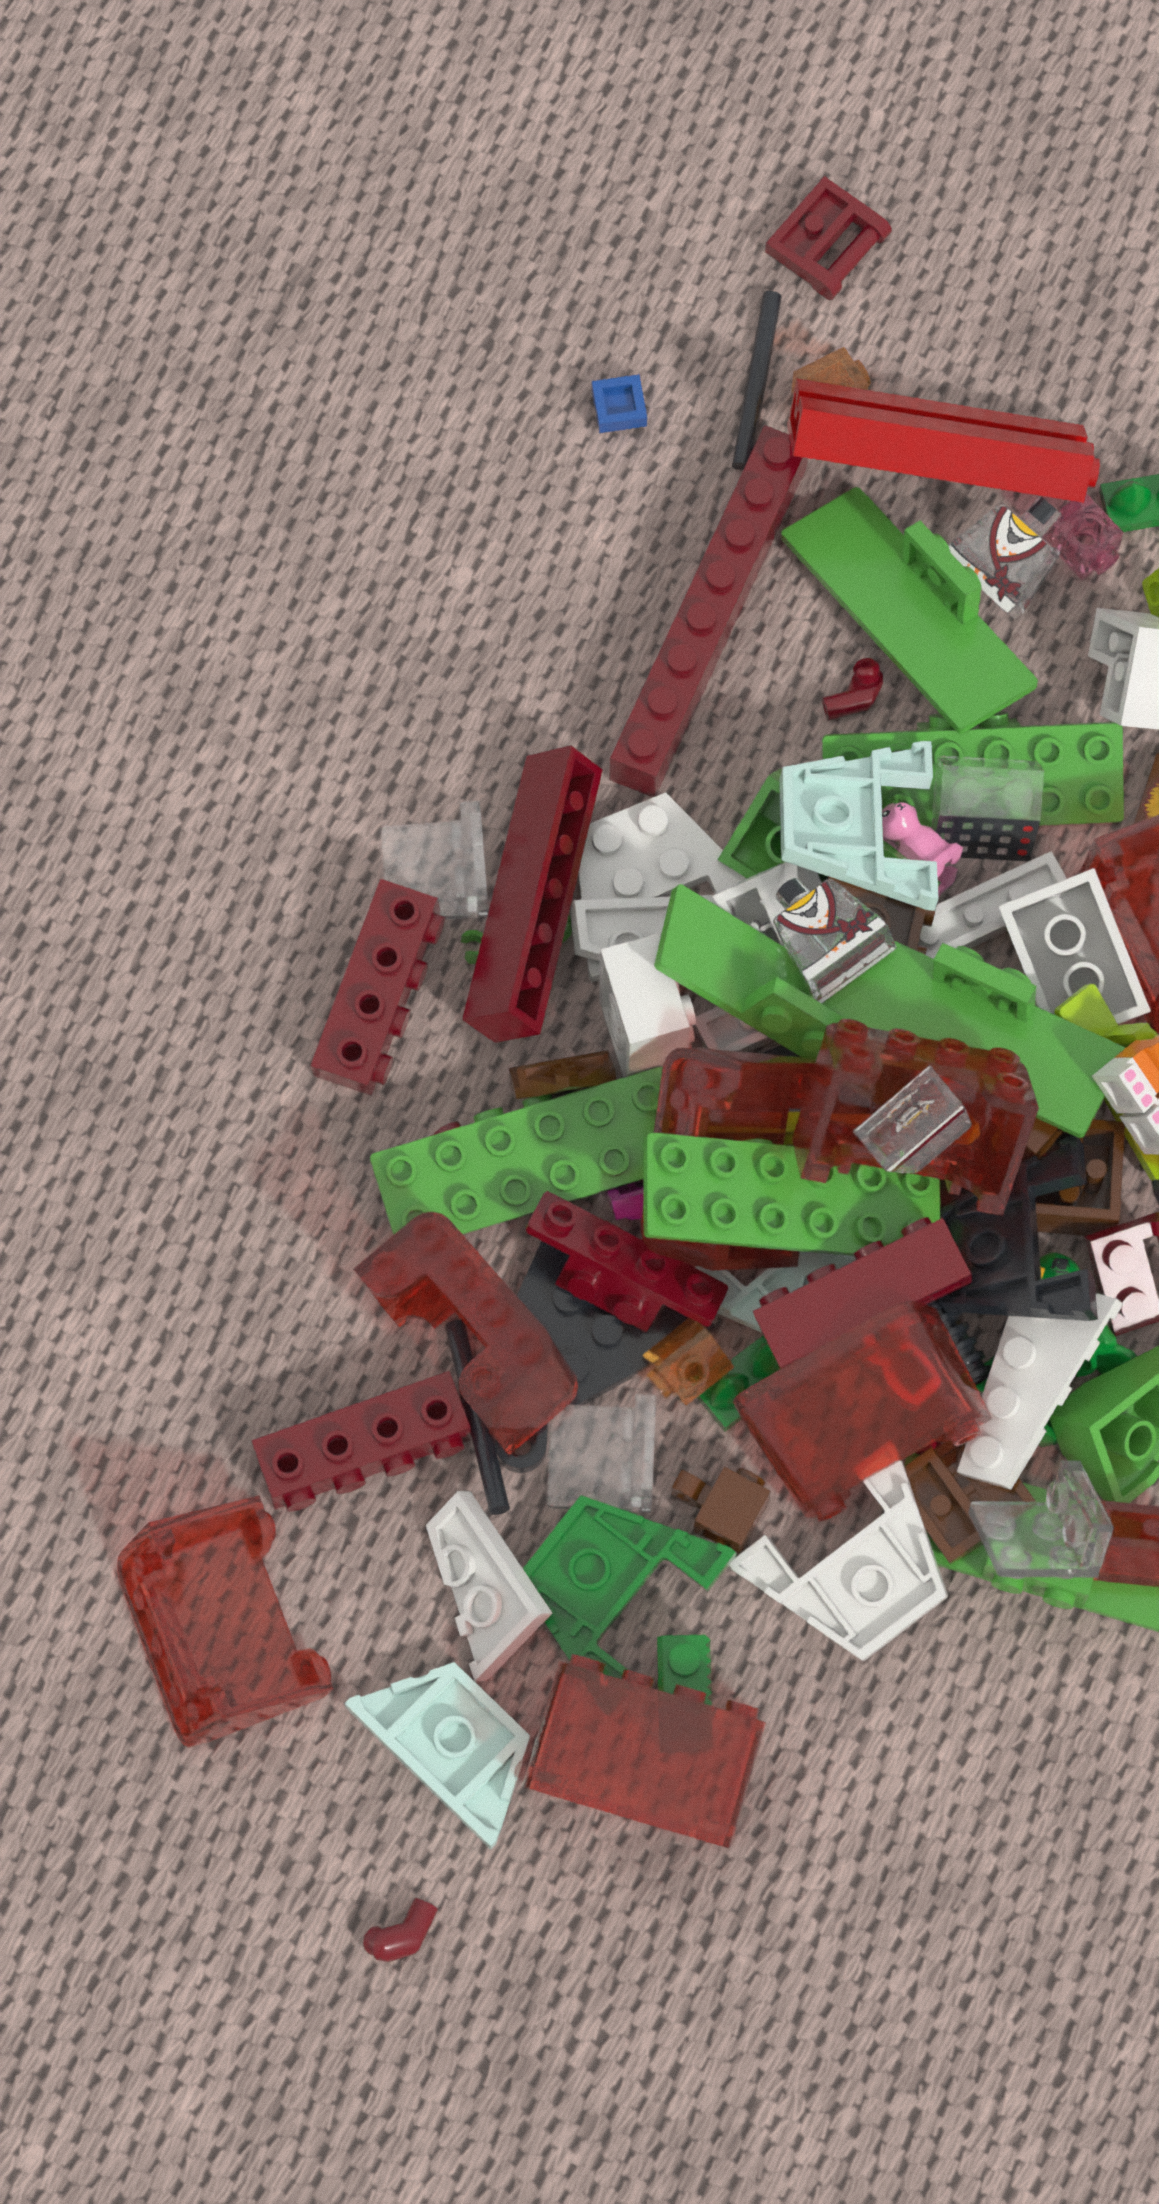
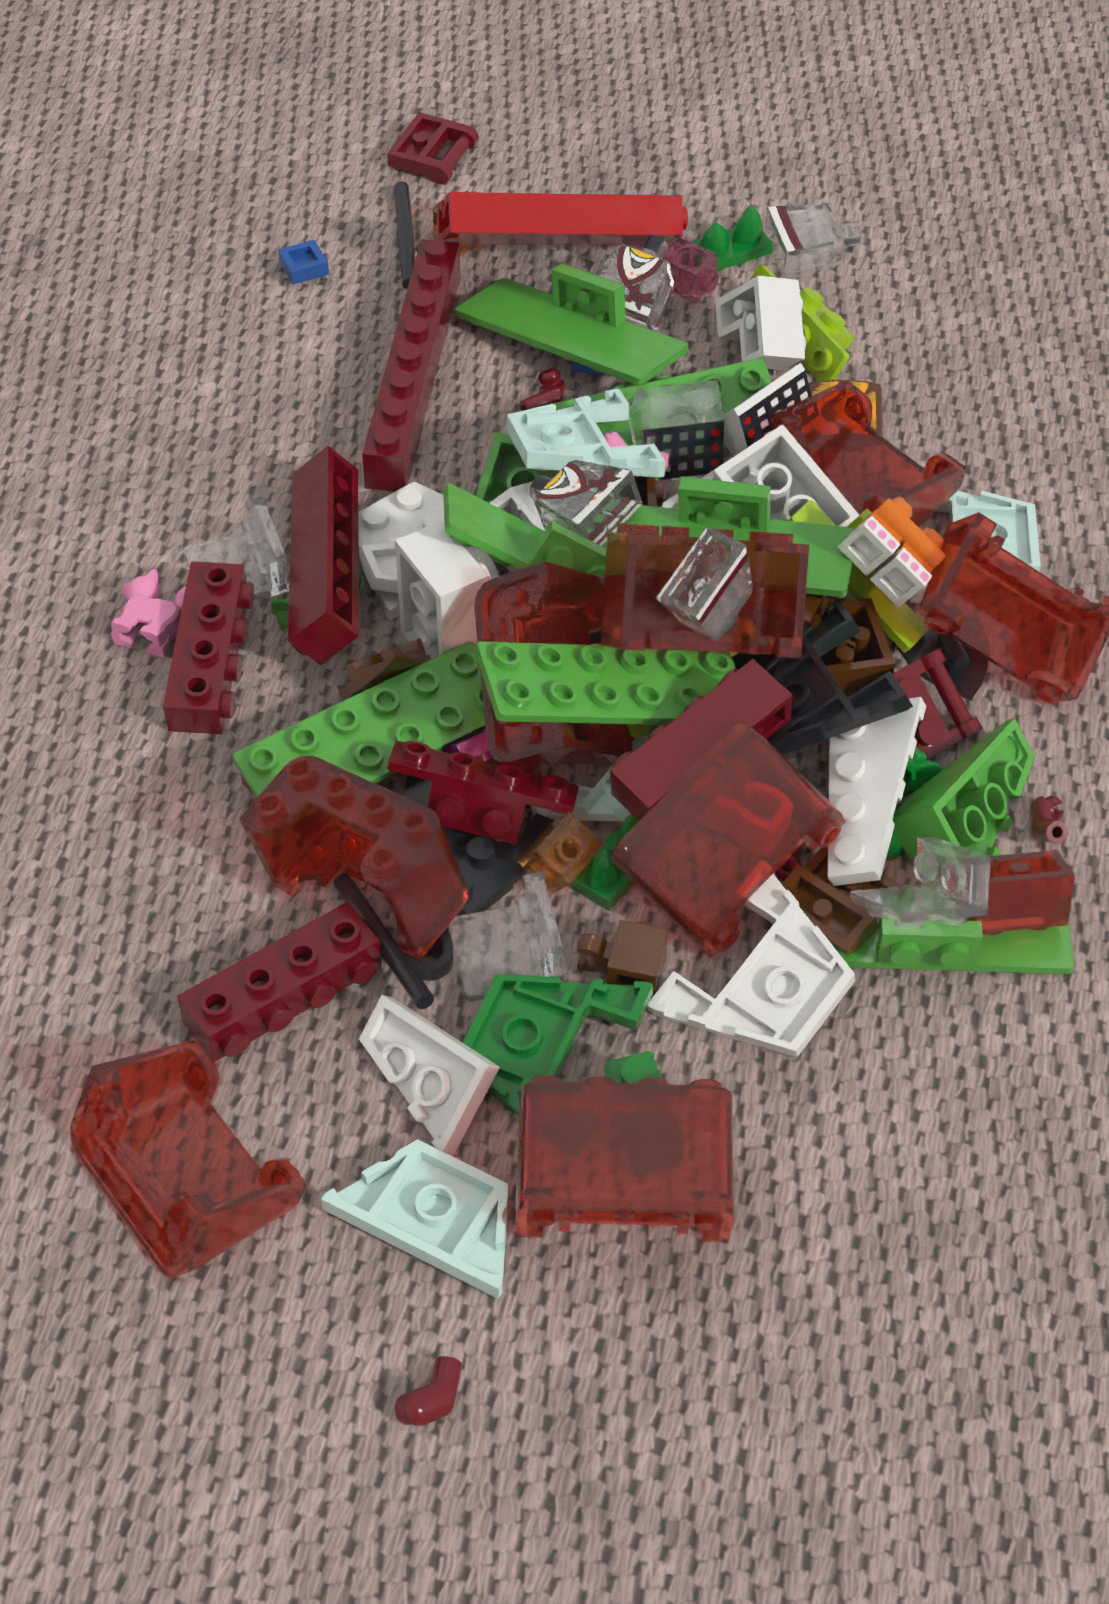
camera: 15 degrees left, 20 degrees down
(325, 921) = (148, 615): none -> bright pink animal
(1092, 809) = (755, 415): none -> slope

